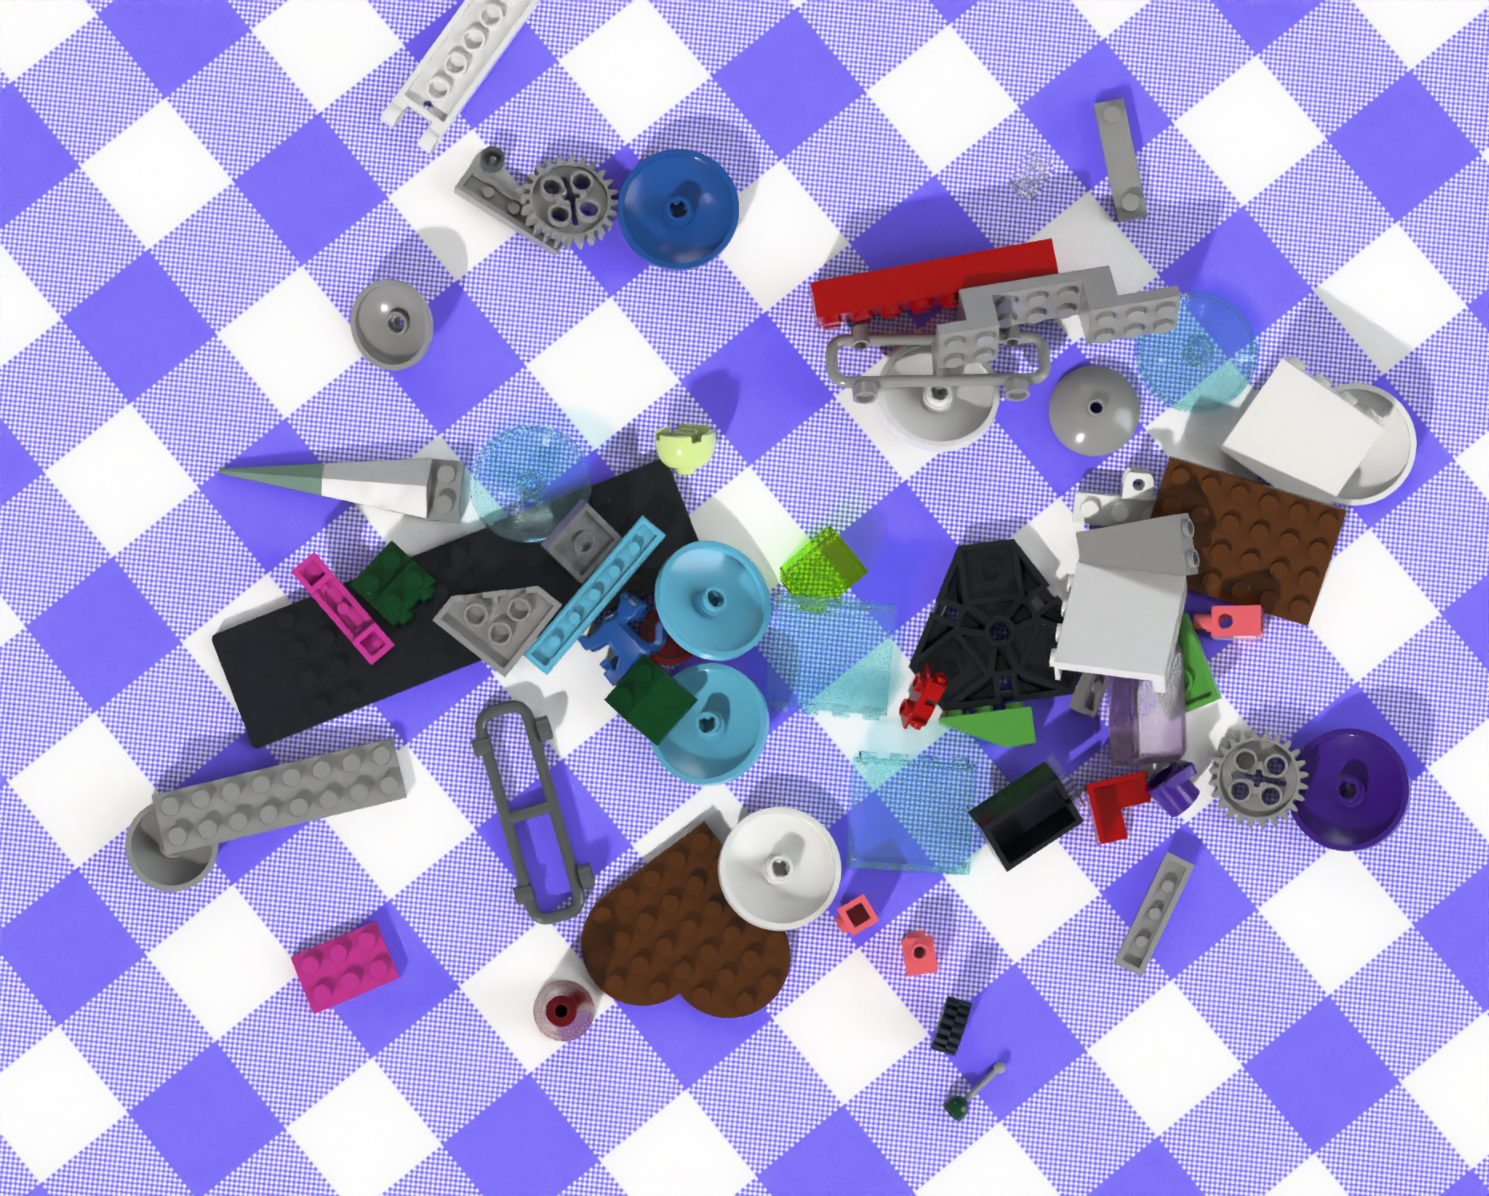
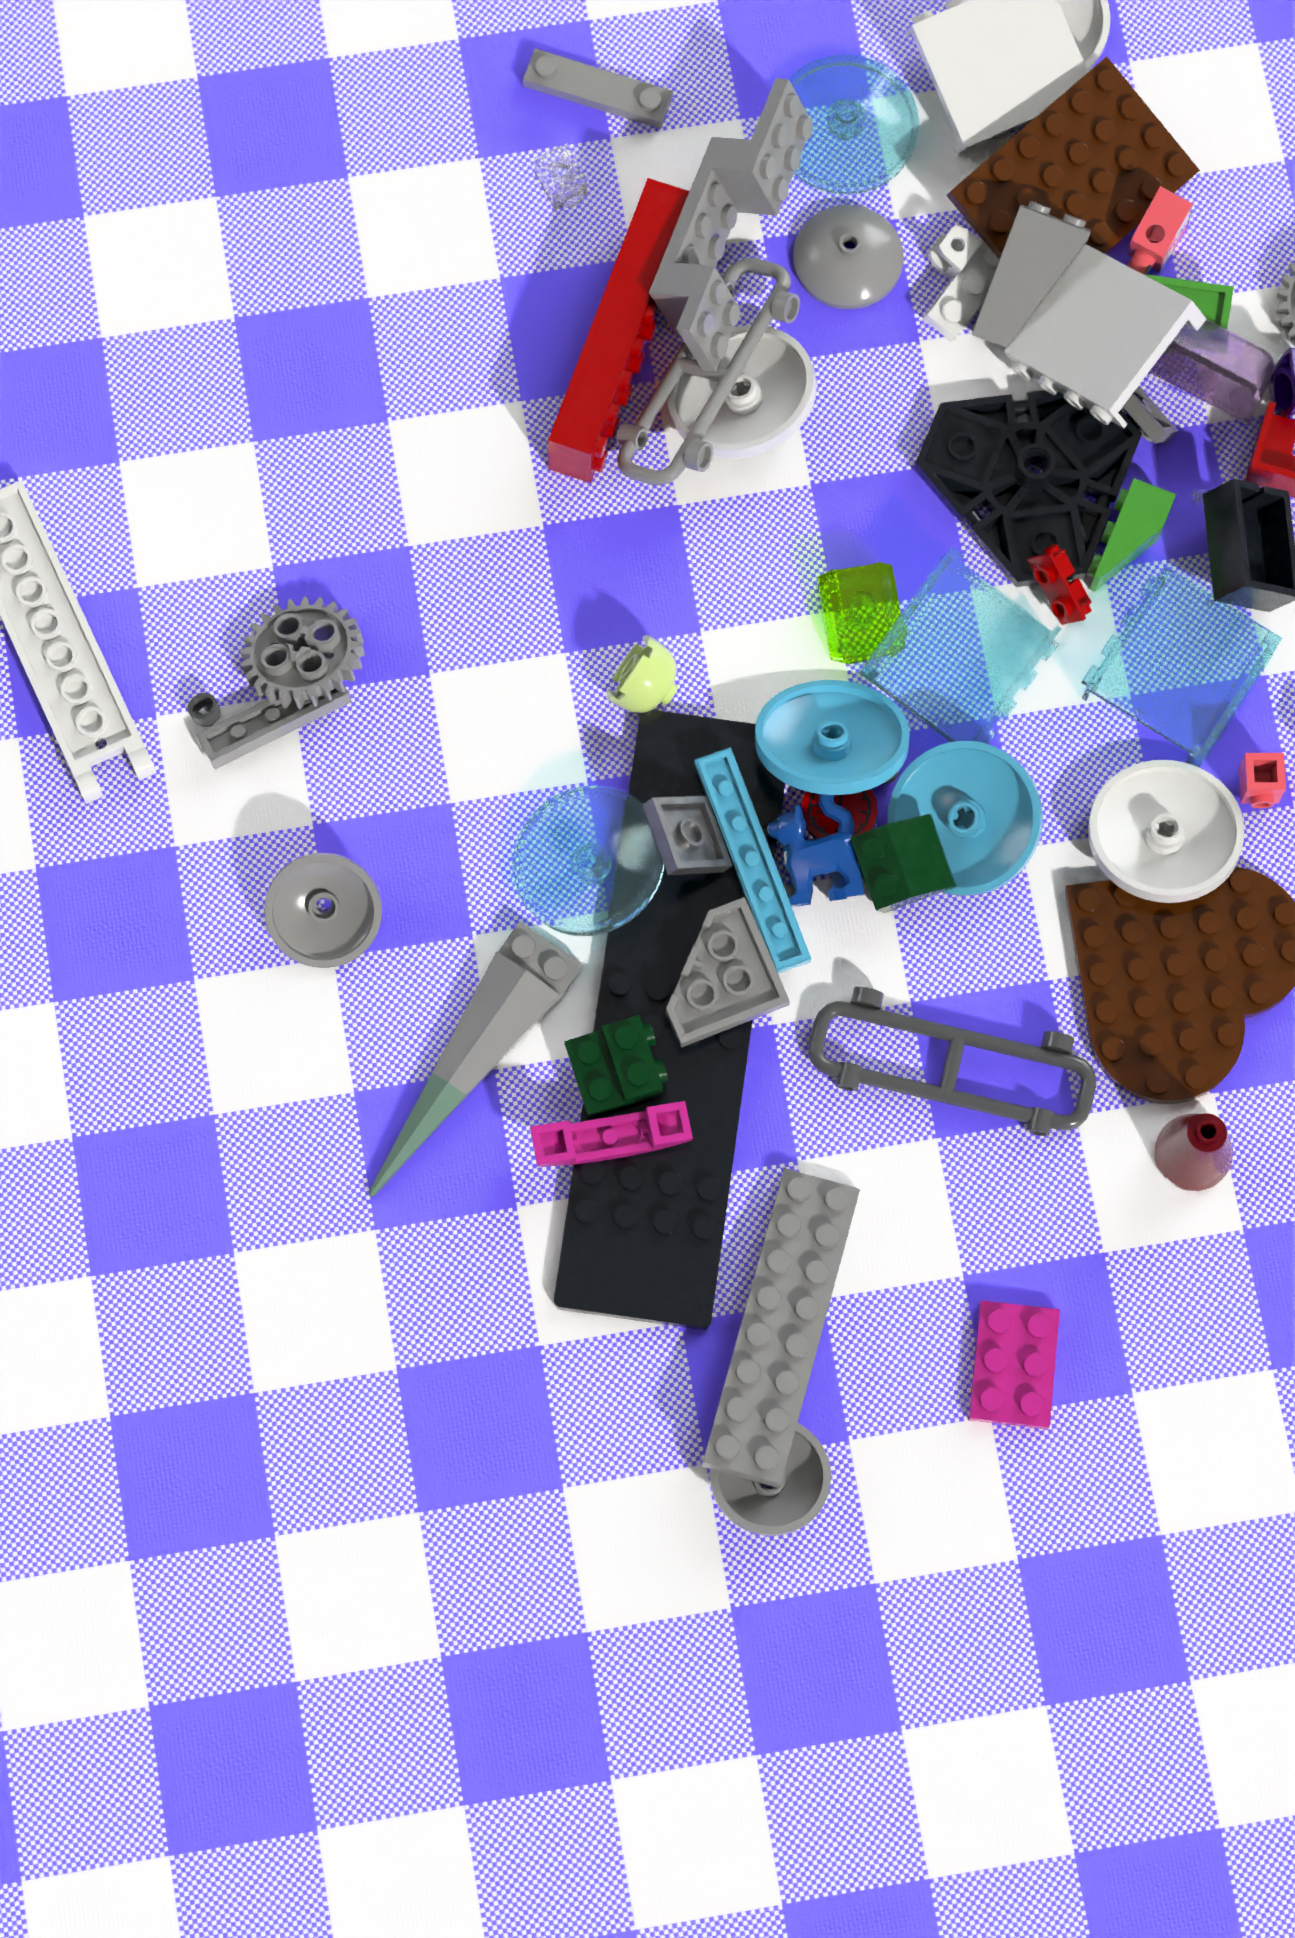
camera: 60 degrees left, 10 degrees down
(678, 209) = (380, 544): blue dish -> none

